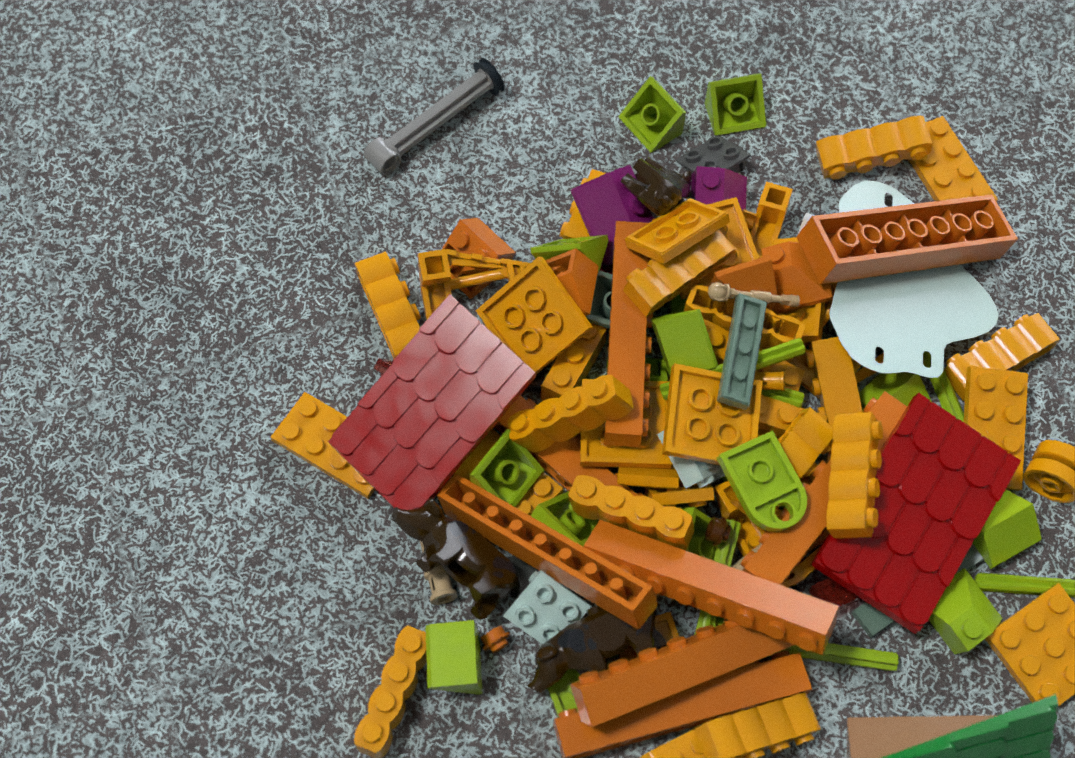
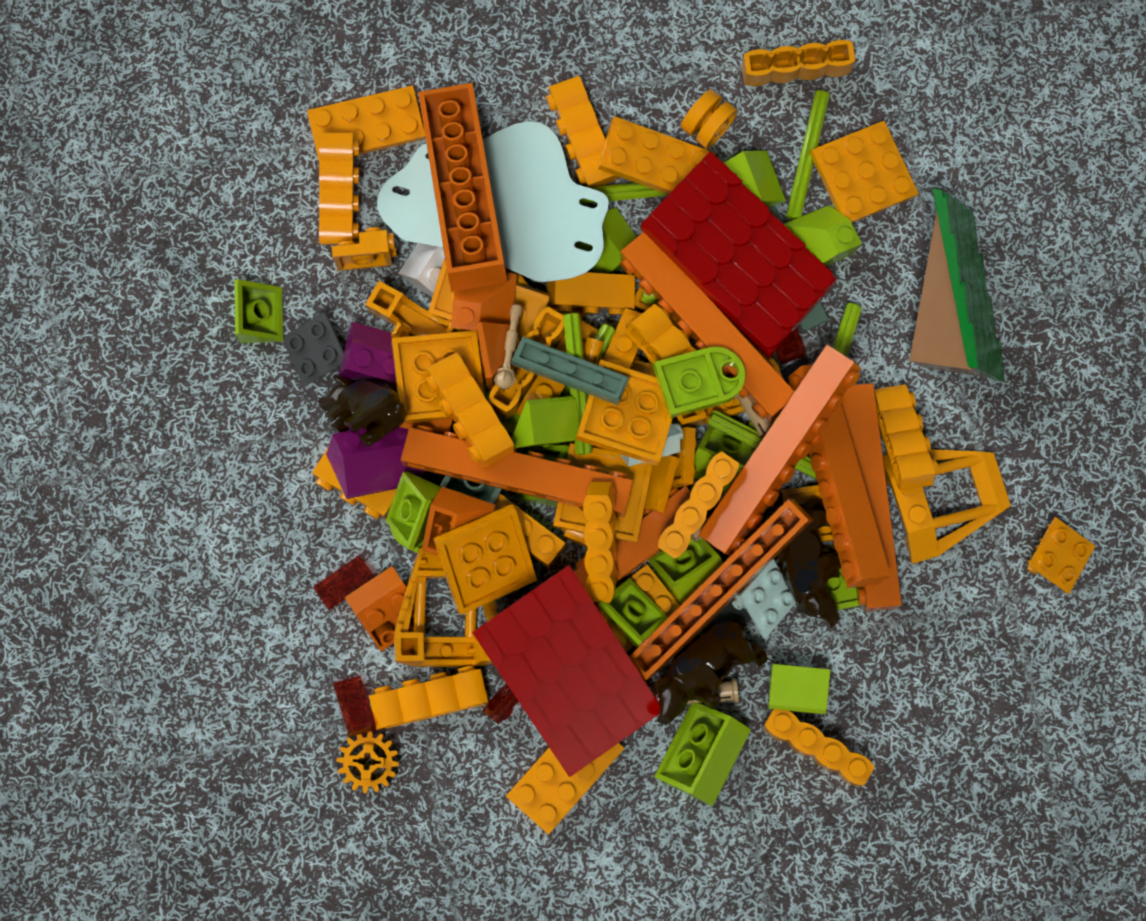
camera: 80 degrees left, 15 degrees up
(310, 260) = (367, 775): none -> light orange gear
(369, 574) = (702, 753): none -> lime slope
(374, 241) = (354, 706): none -> clear red plate
(387, 153) = (244, 679): light grey piece -> none
(494, 217) = (343, 582): none -> clear red plate
(495, 639) = (781, 649): orange plate -> none
(653, 116) = (254, 399): lime slope -> none
(677, 230) = (432, 403): light orange tile -> none
(717, 531) = (721, 432): reddish brown plate -> none
(819, 178) = (374, 250): none -> light orange plate
(853, 475) = (707, 301): light orange brick -> none

